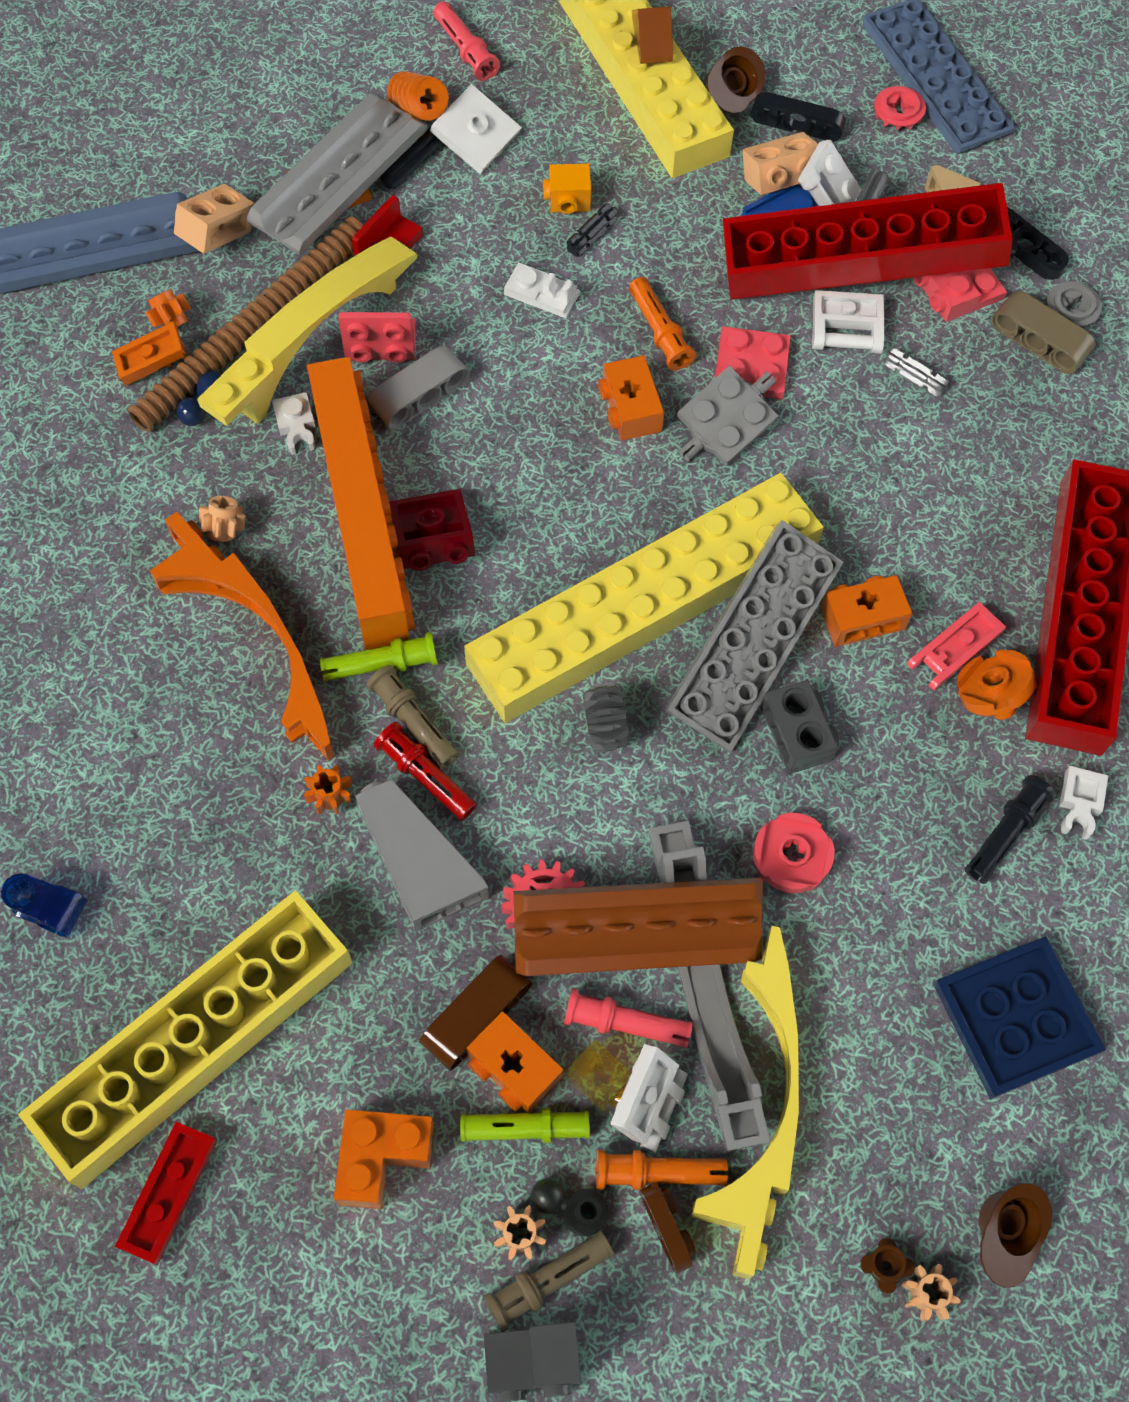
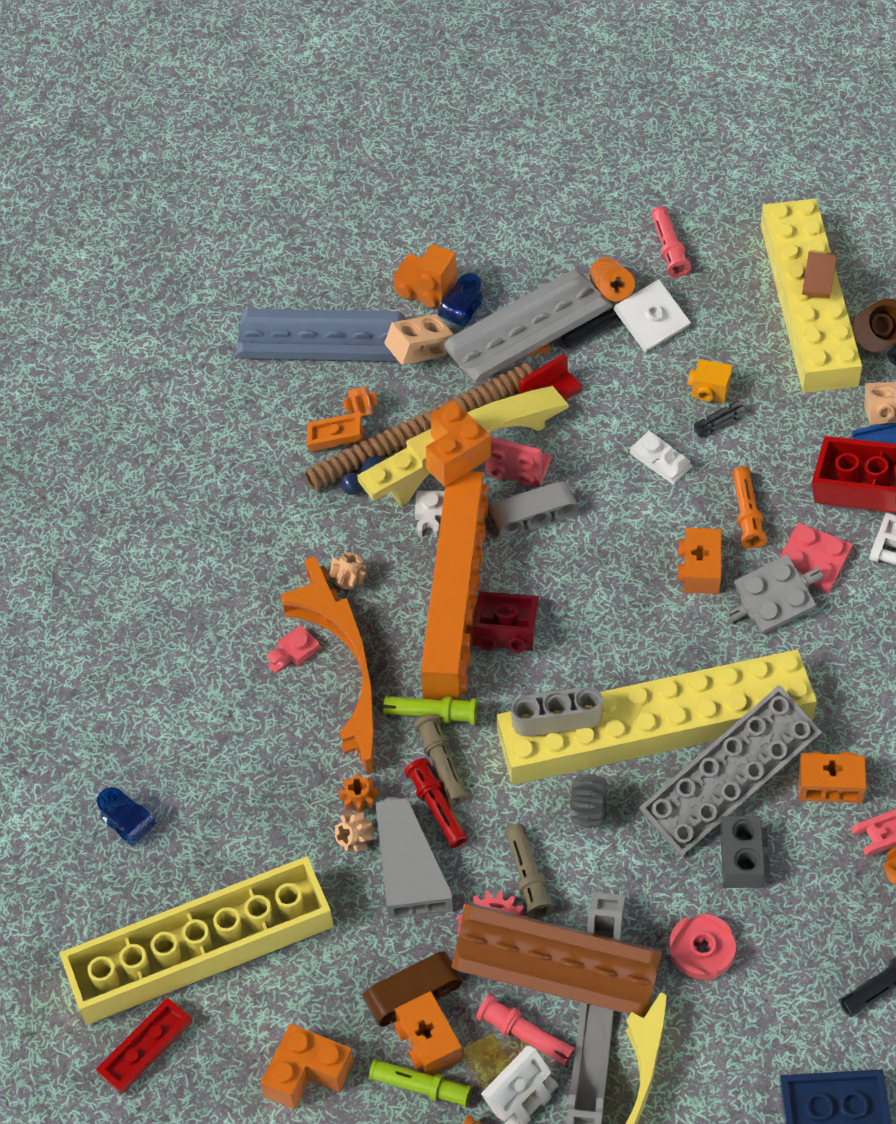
camera: 25 degrees right, 10 degrees down
(186, 630) = (294, 648): none -> coral plate
(201, 144) = (427, 277): none -> orange brick
(249, 161) = (462, 300): none -> clear blue piece
(311, 329) = (458, 444): none -> orange brick
(339, 839) = (354, 832): none -> light nougat gear
(547, 608) = (545, 721): none -> light grey beam
(572, 837) = (532, 883): none -> dark tan pin

